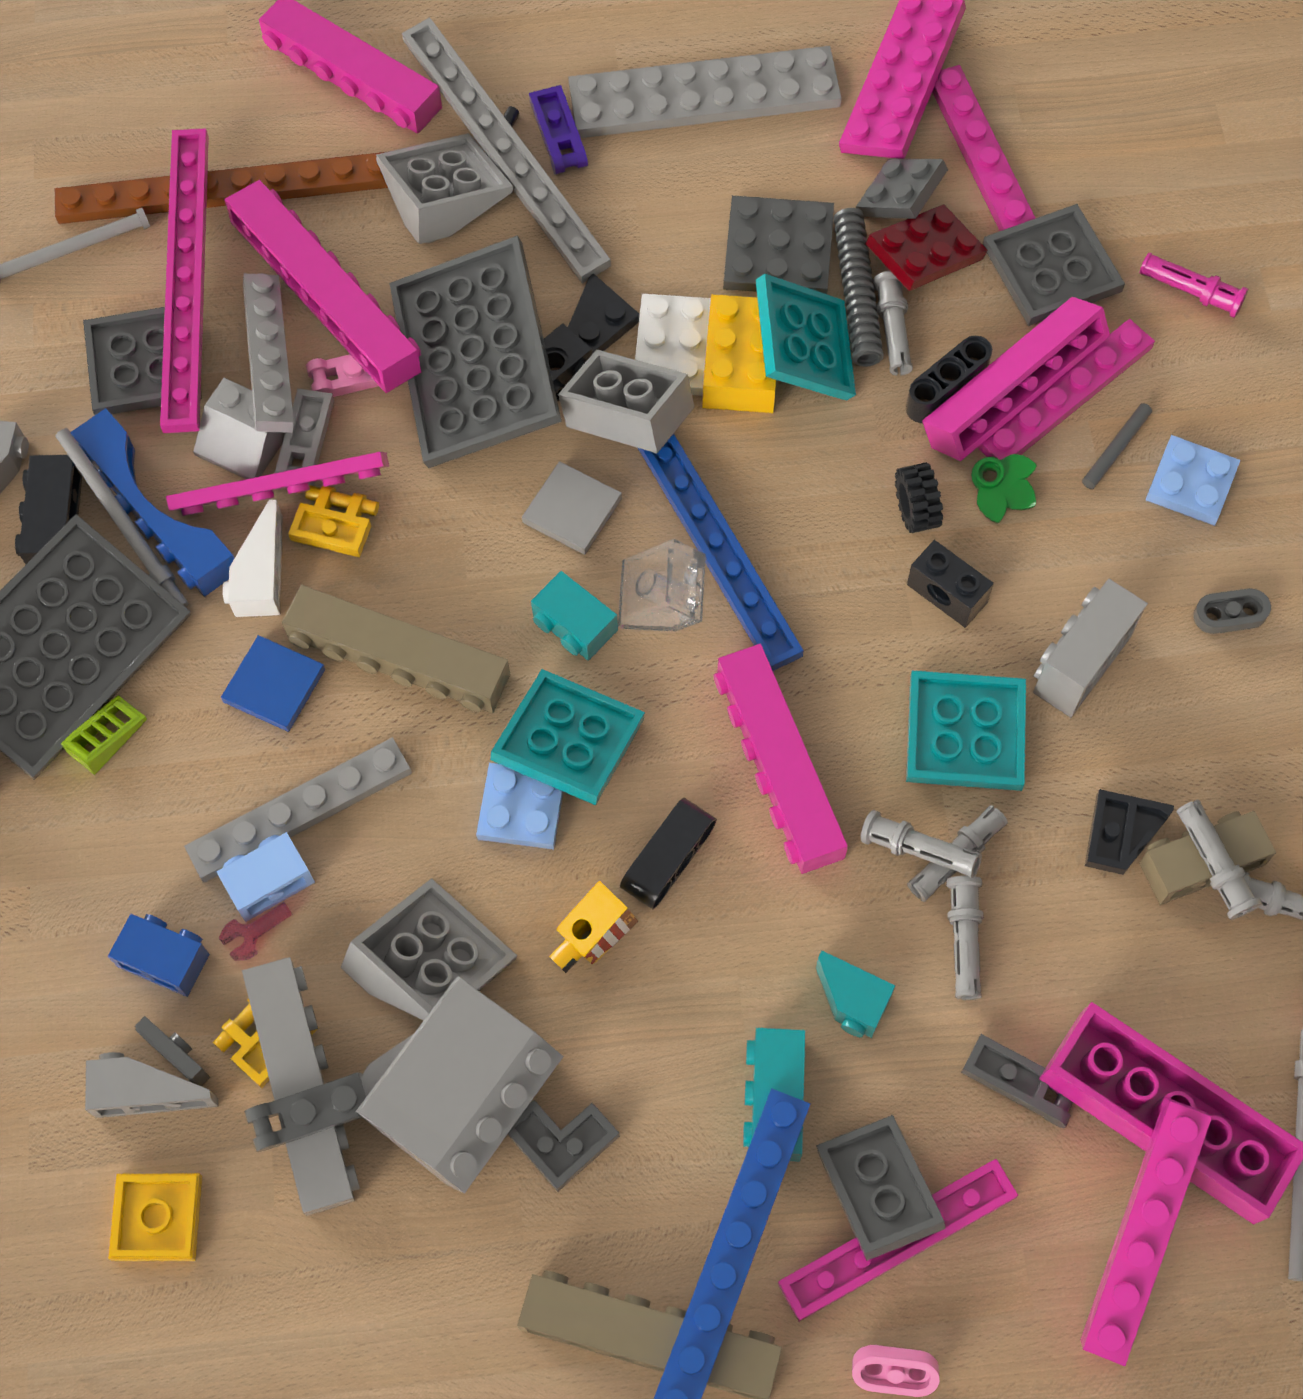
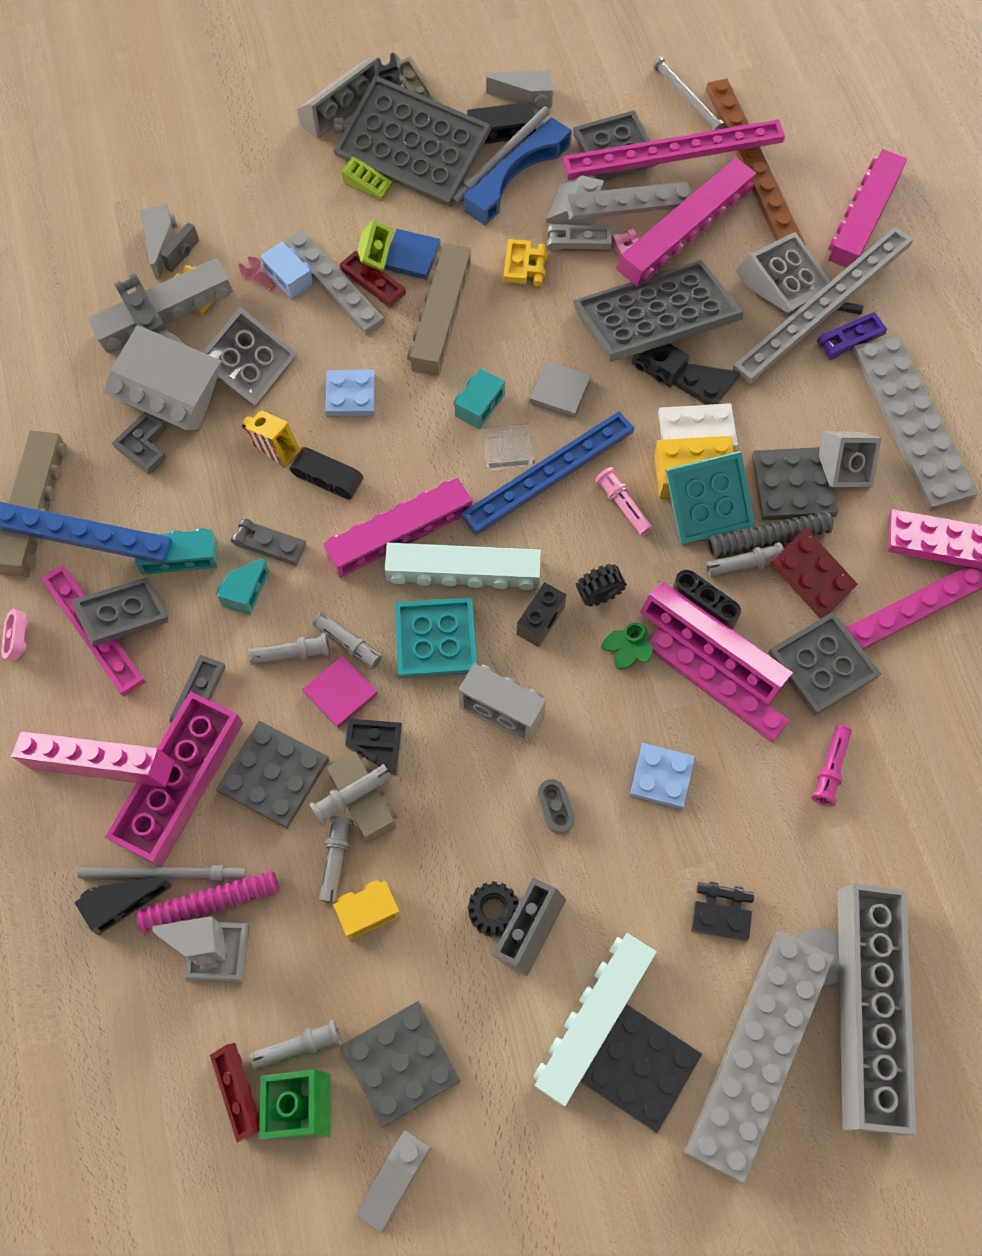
camera: 80 degrees right, 0 degrees up
(155, 1217) = (91, 261): yellow tile -> none
(159, 954) = (235, 230): blue brick -> none
(256, 570) = (483, 229): white slope -> none
(259, 728) = (375, 244): none -> lime slope
(294, 480) = (542, 232): dark pink plate -> none
(312, 745) = (373, 280): none -> dark red plate
(567, 736) = (394, 405): teal plate -> none
(626, 400) = (635, 397): light grey brick -> none
(760, 168) = (849, 458): none -> light grey slope
(765, 458) = (617, 492): none -> bright pink pin
(774, 953) = (269, 542): none -> dark grey plate
(856, 678) = (462, 566): none -> light aqua brick
(902, 188) = (859, 550): dark grey plate -> none
(904, 839) = (349, 603): light grey pin -> none
(1036, 874) = (340, 692): none -> dark pink tile
(1117, 446) = (680, 721): dark grey bar -> none
(1159, 979) = (273, 774): none -> dark grey plate

